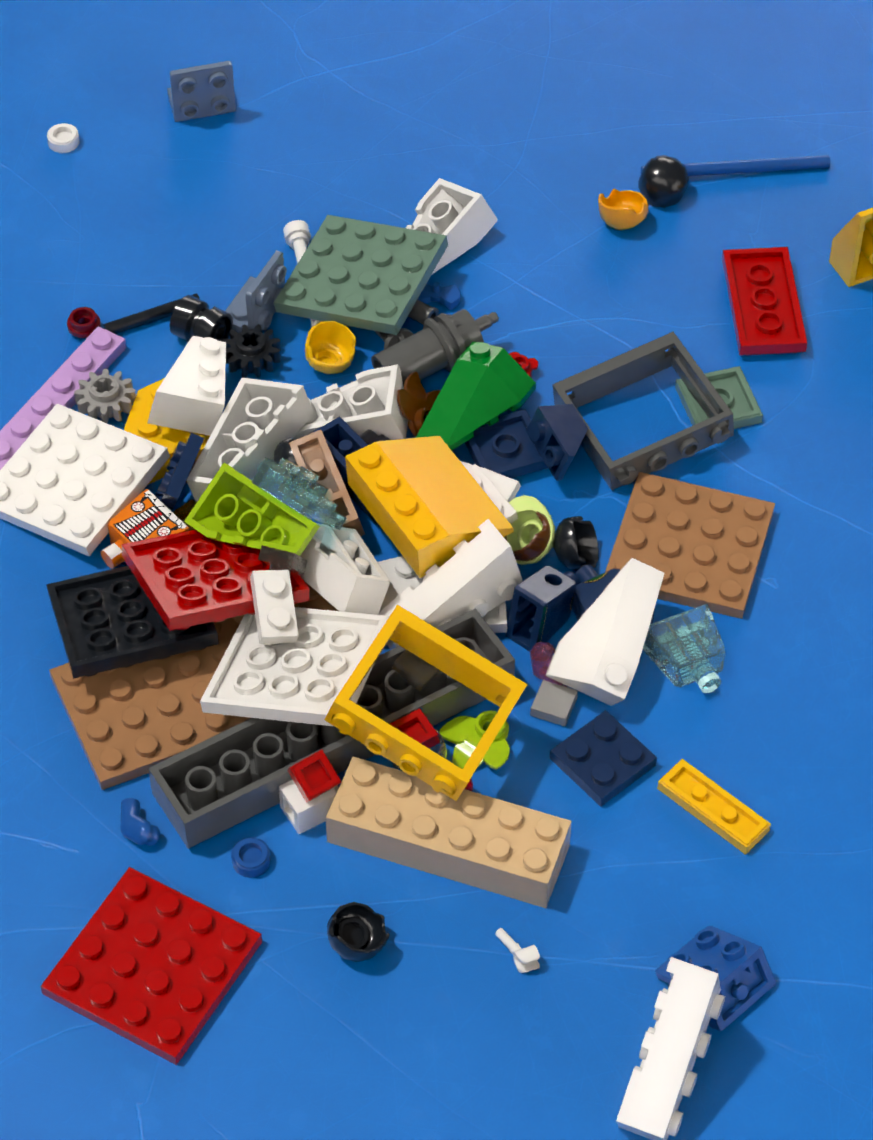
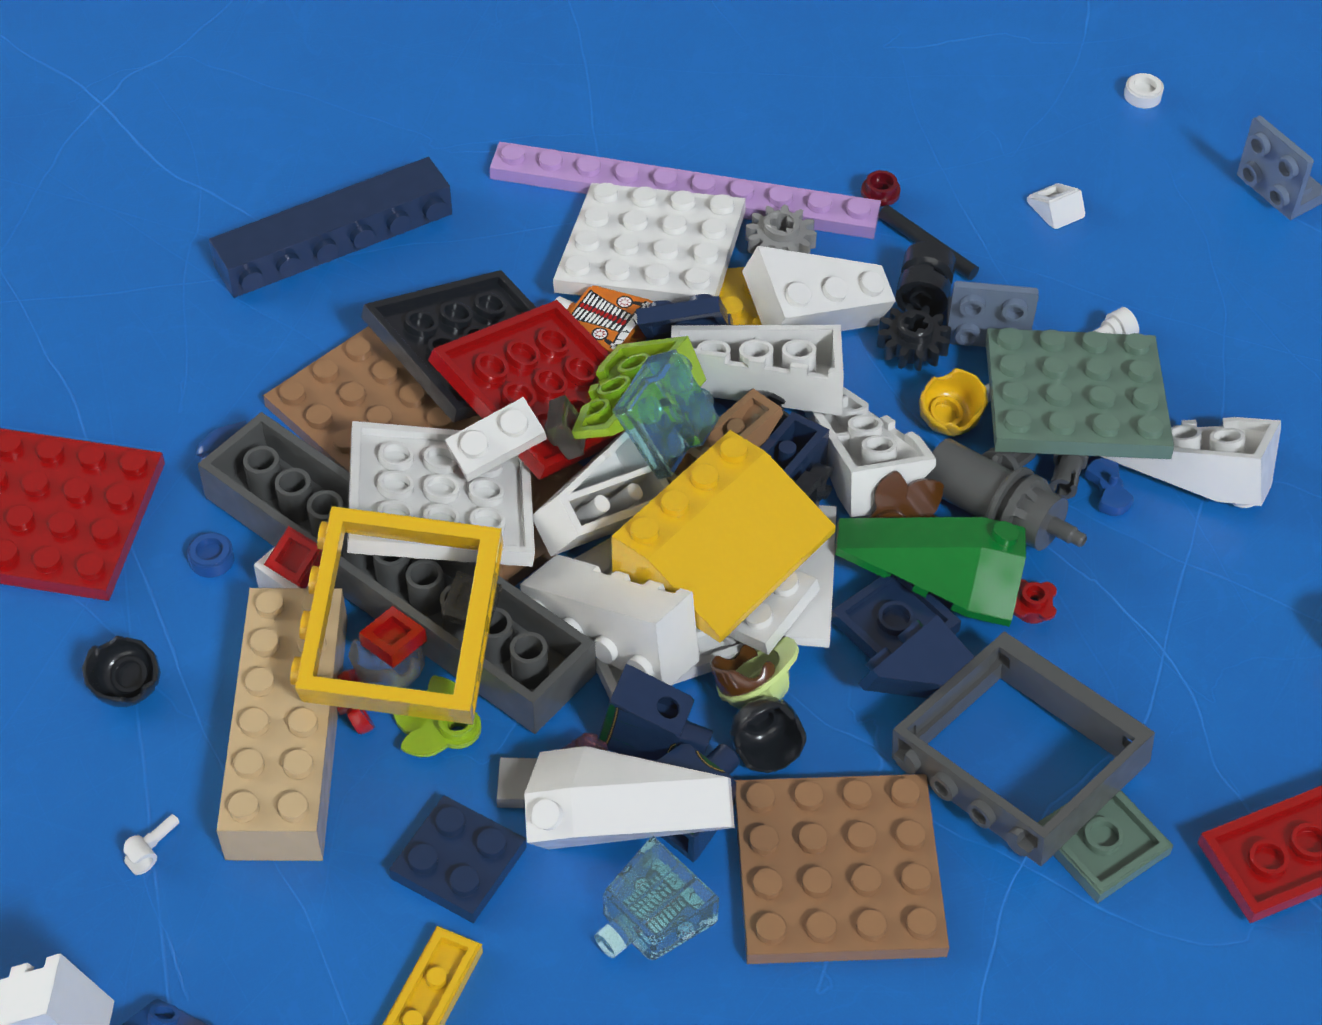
camera: 70 degrees right, 0 degrees up
(153, 228) = (1058, 204): none -> white slope

